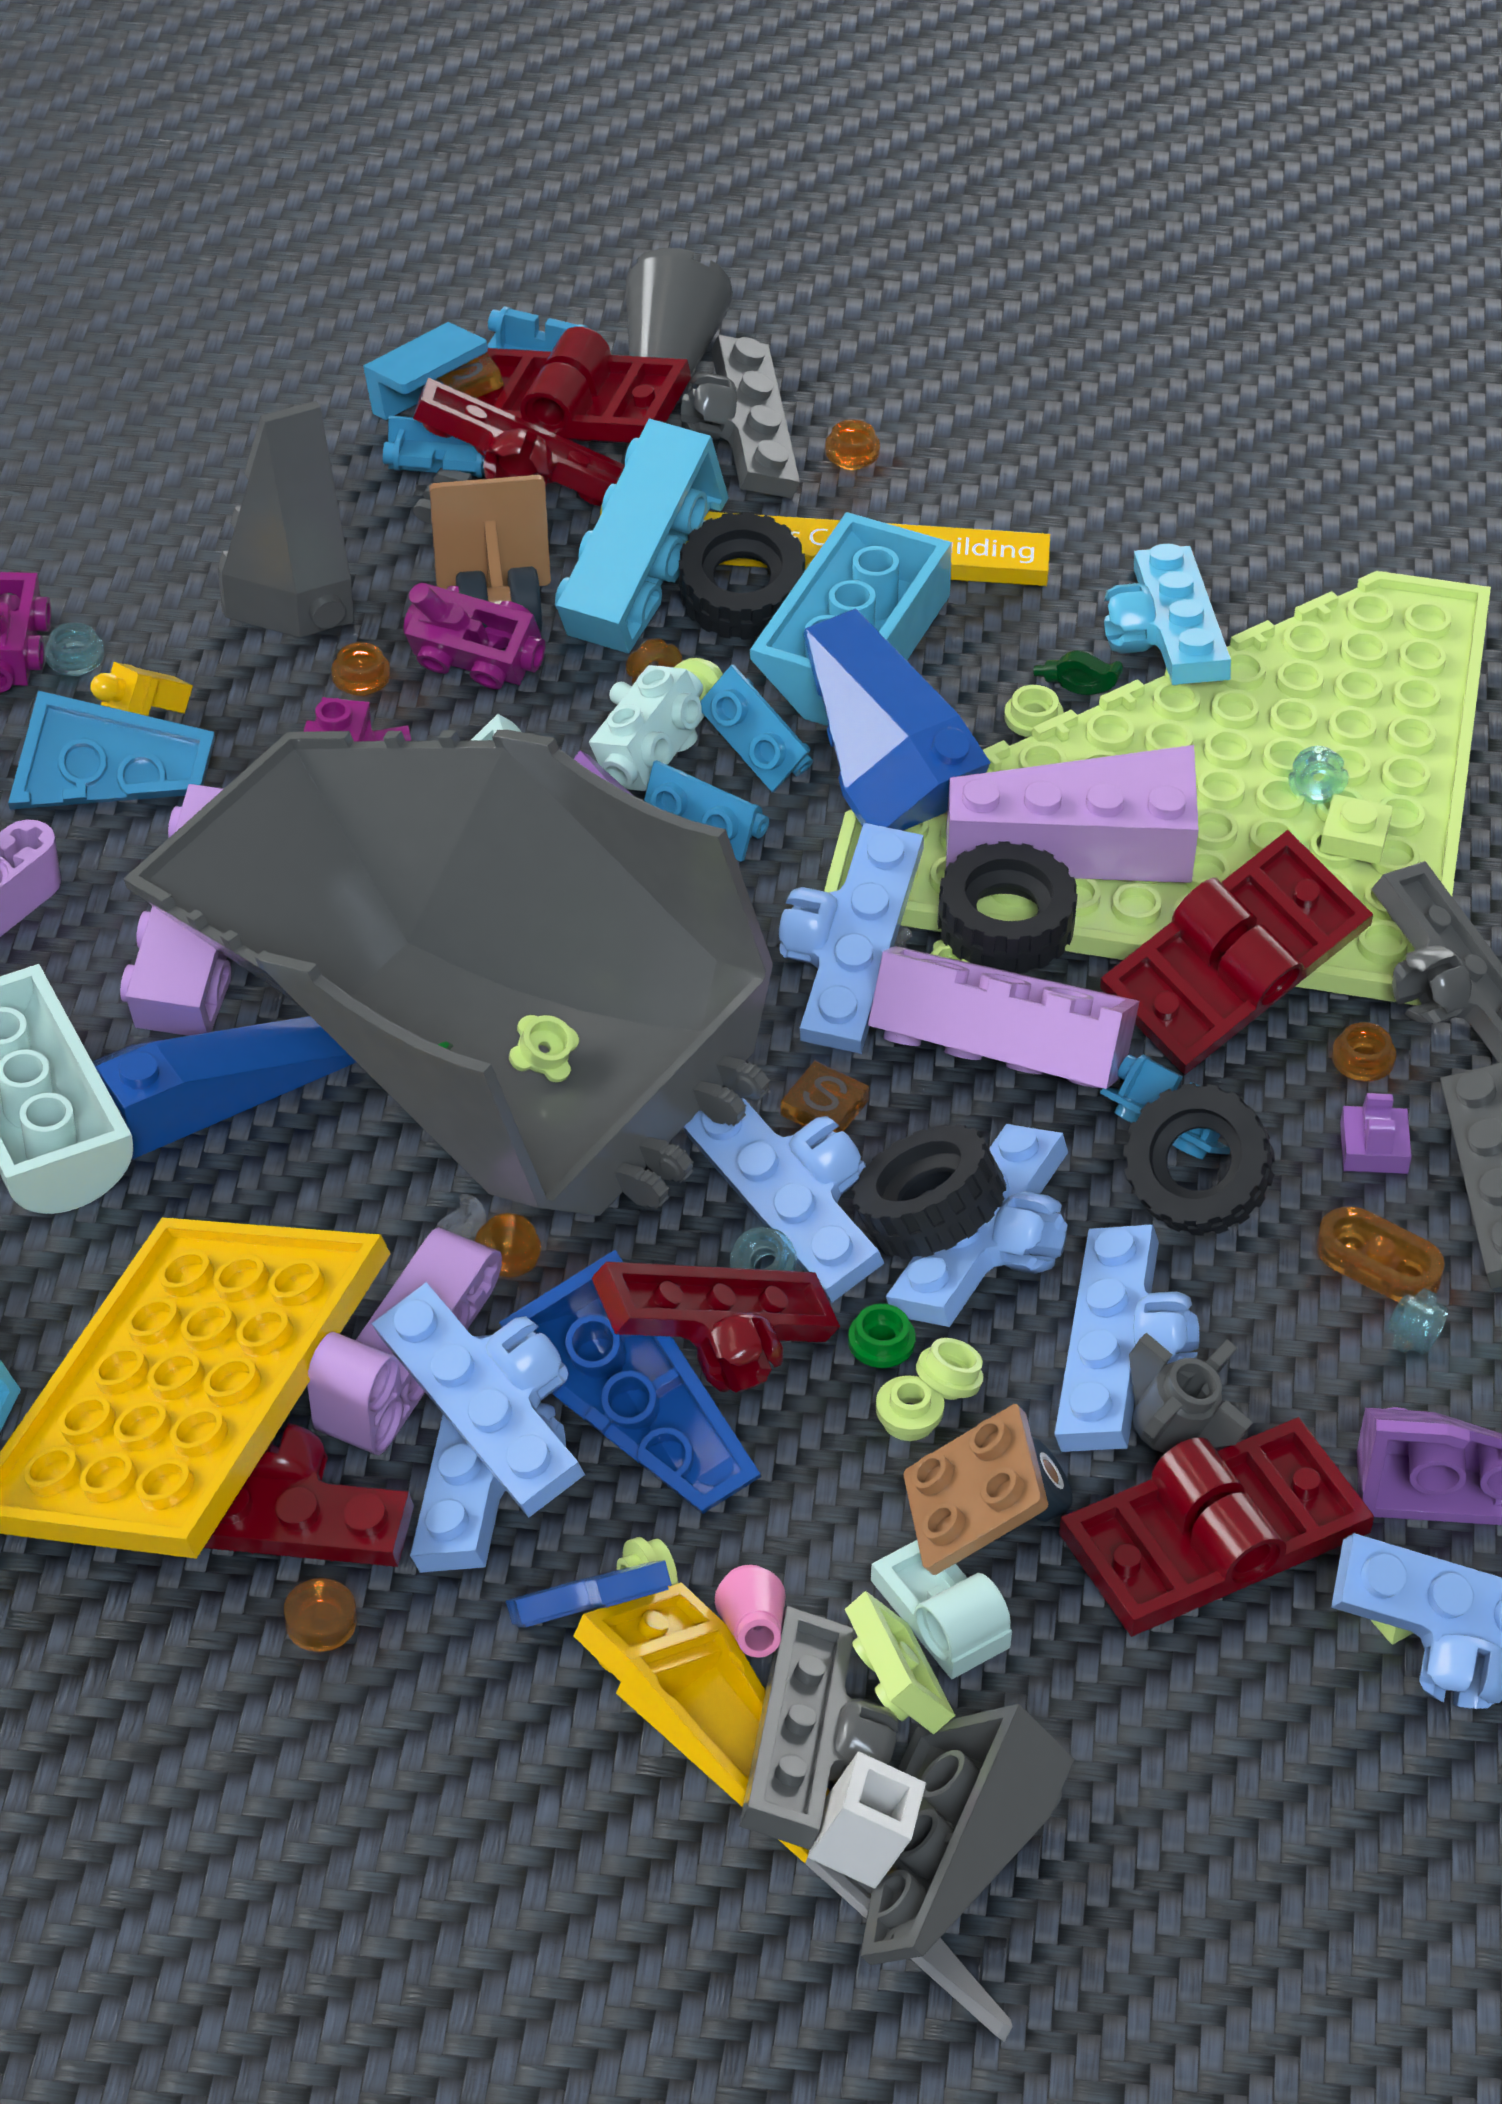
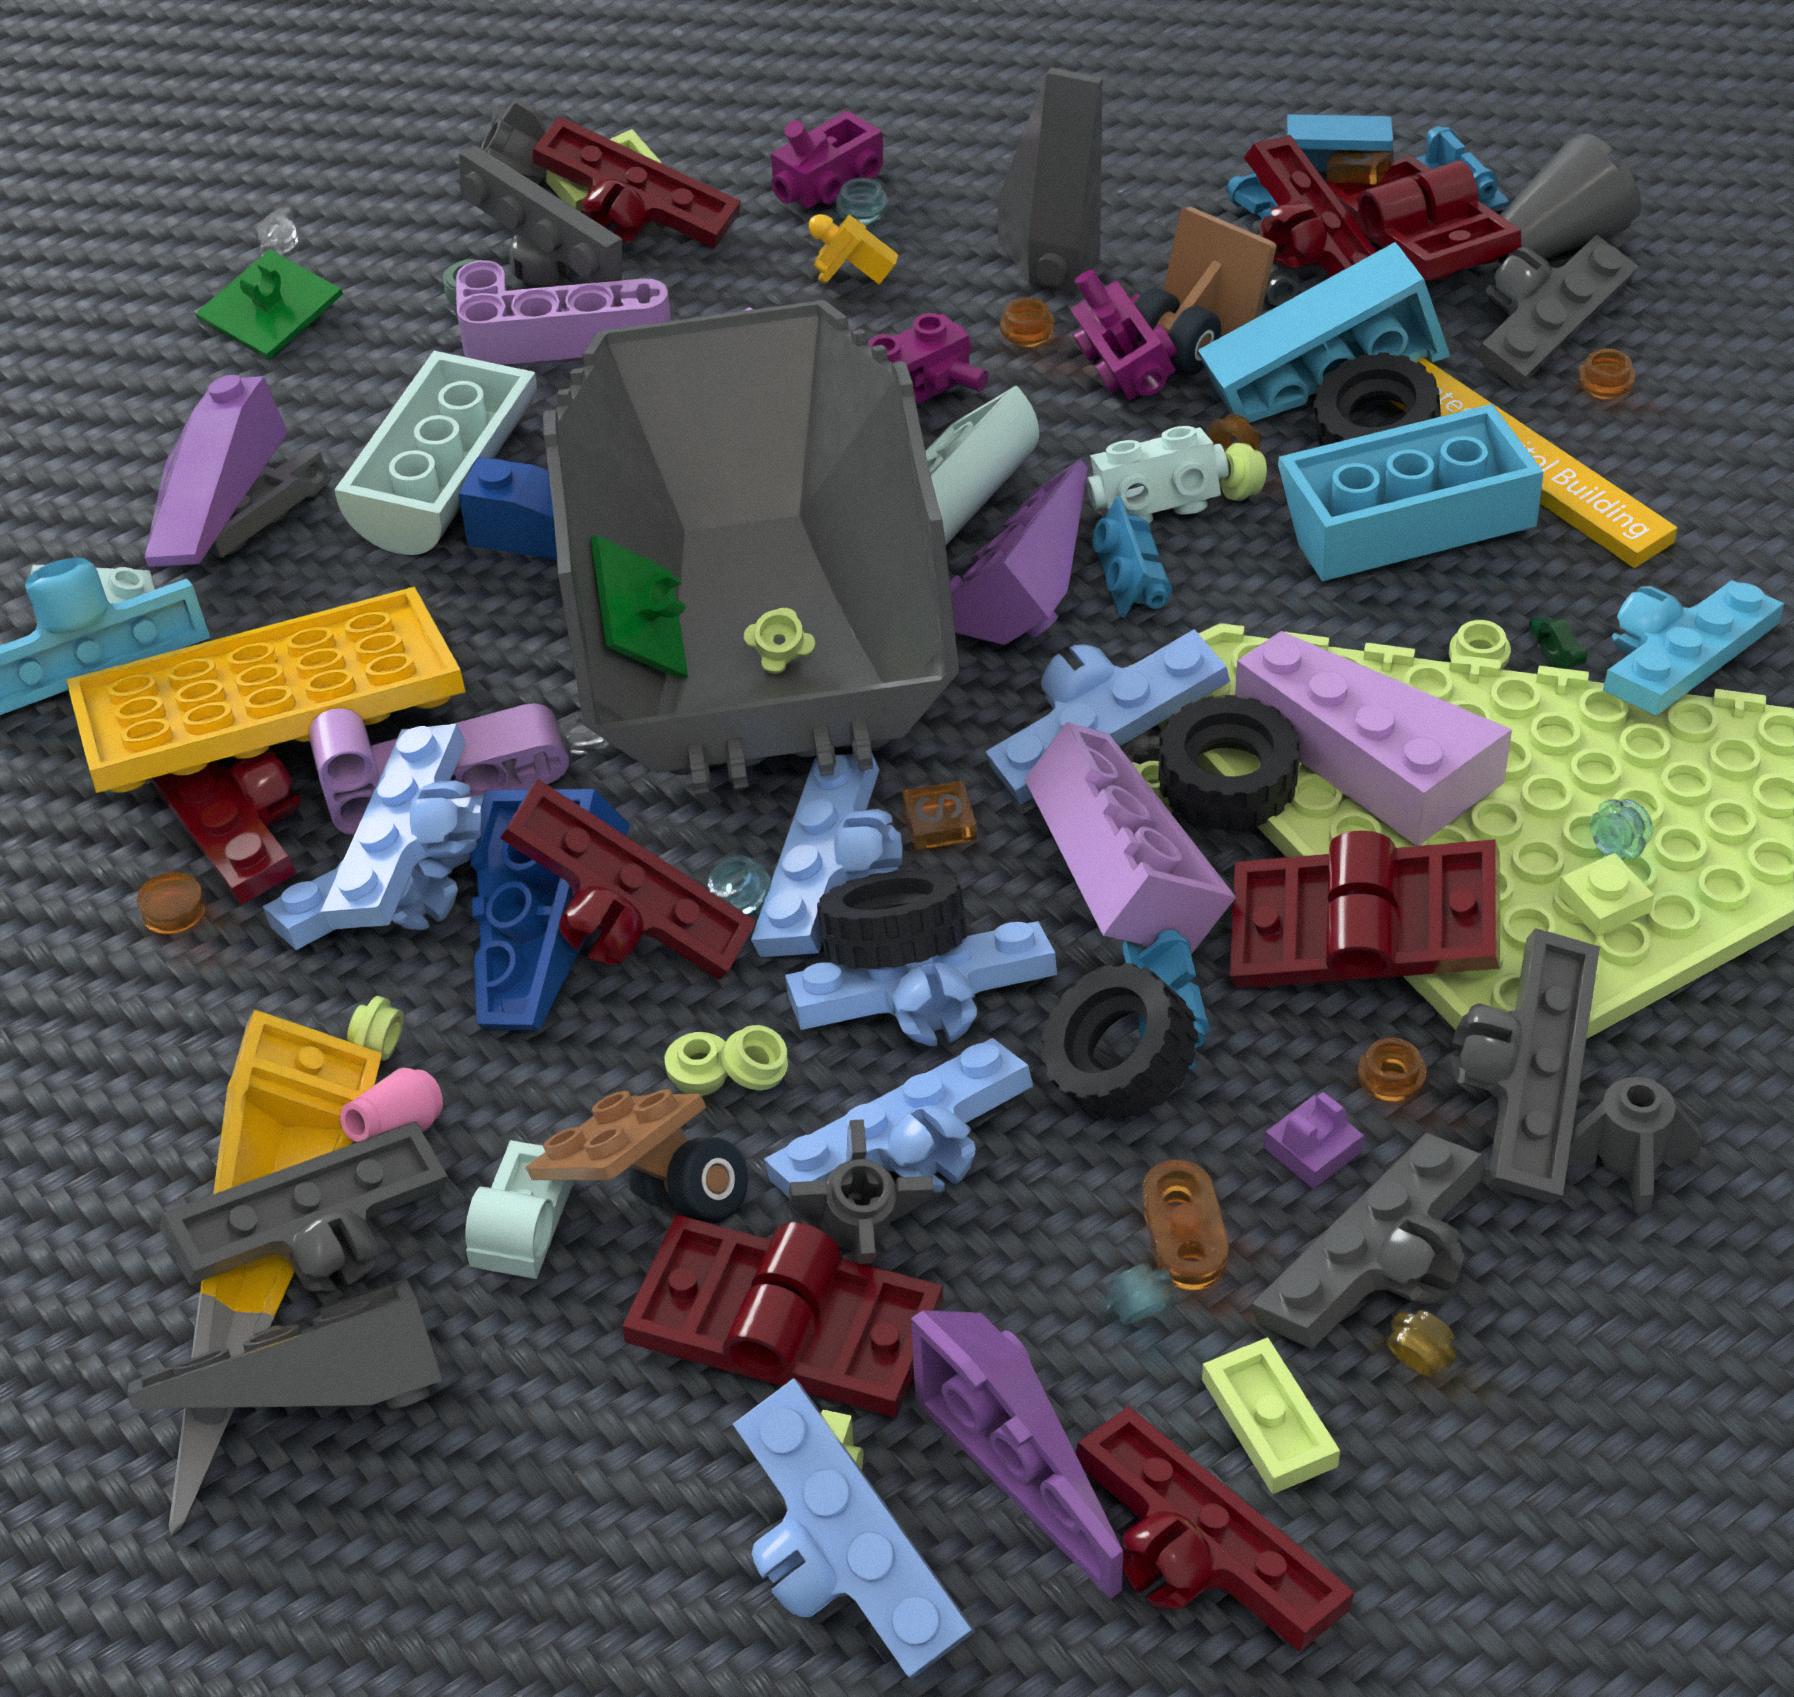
camera: 50 degrees right, 0 degrees up
(104, 755) = (771, 267): dark azure wing -> none
(515, 1240) = (593, 759): clear orange plate -> none
(589, 1593) = (301, 1008): blue tile -> none
(755, 729) = (1235, 502): dark azure hinge -> none
(867, 1820) = (232, 1291): white brick -> none
(881, 1336) = (746, 999): green plate -> none
(887, 726) = (1301, 566): blue wedge -> none
(894, 1654) = (422, 1218): yellowish green plate -> none

